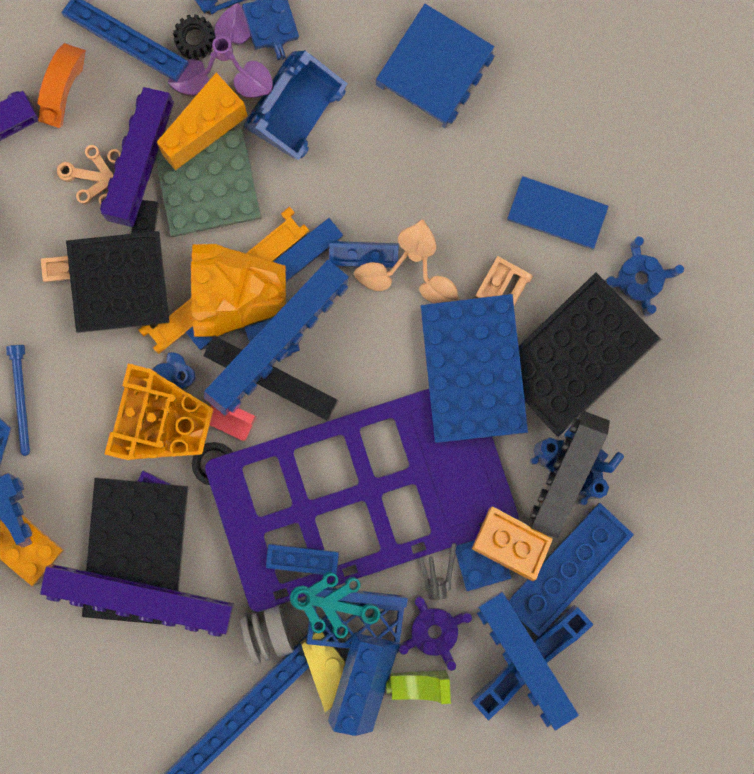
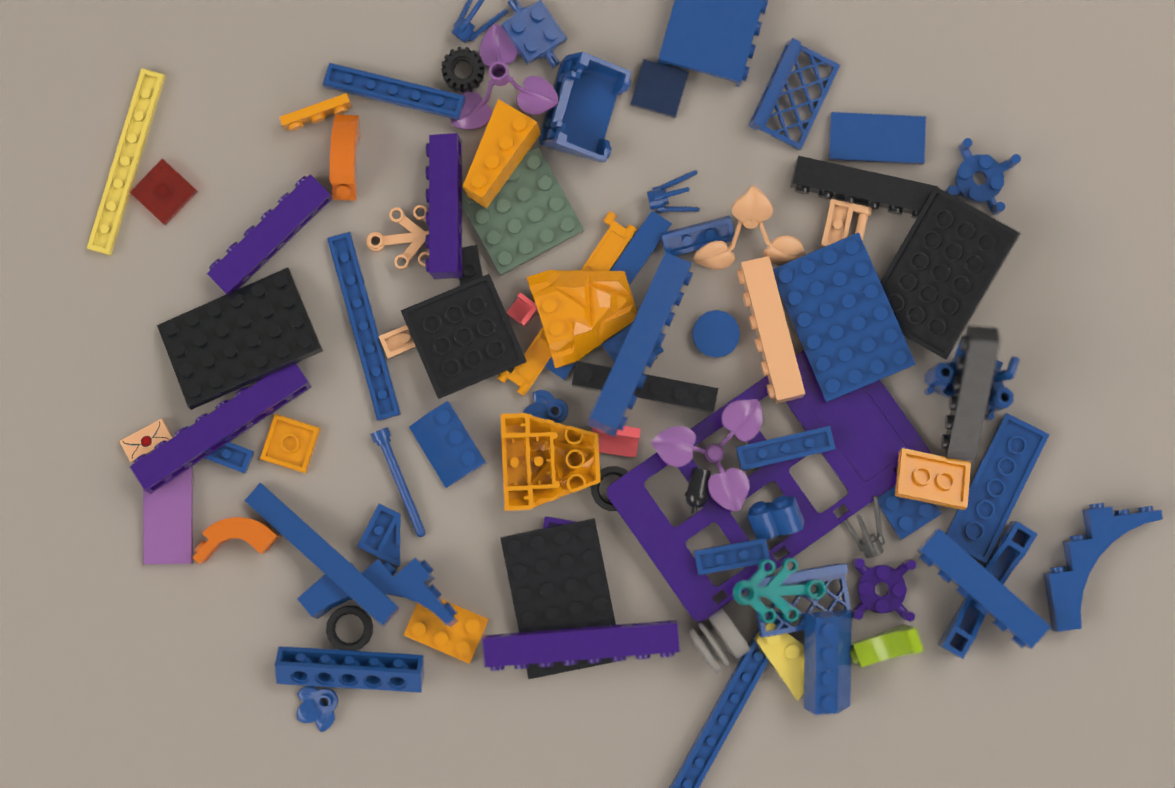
camera: 15 degrees left, 0 degrees up
(31, 245) = (364, 326): none -> blue tile
(47, 36) = (316, 113): none -> light orange plate
(74, 377) = (447, 444): none -> blue slope
(180, 274) = (522, 310): none -> coral panel
(290, 487) = (698, 488): none -> black piece
(321, 494) = (732, 485): none -> medium lavender plant
(339, 206) = (659, 197): none -> blue plant
(353, 349) = (716, 334): none -> blue tile
(355, 536) = (775, 517): none -> blue brick
(370, 107) = (659, 88): none -> dark blue tile
(383, 474) = (785, 448): none -> blue plate
(404, 361) = (771, 329): none -> light nougat brick
(476, 139) = (776, 84): none -> blue fence
(527, 252) = (860, 186): none -> black brick
(630, 655) = (1066, 587): none -> blue arch

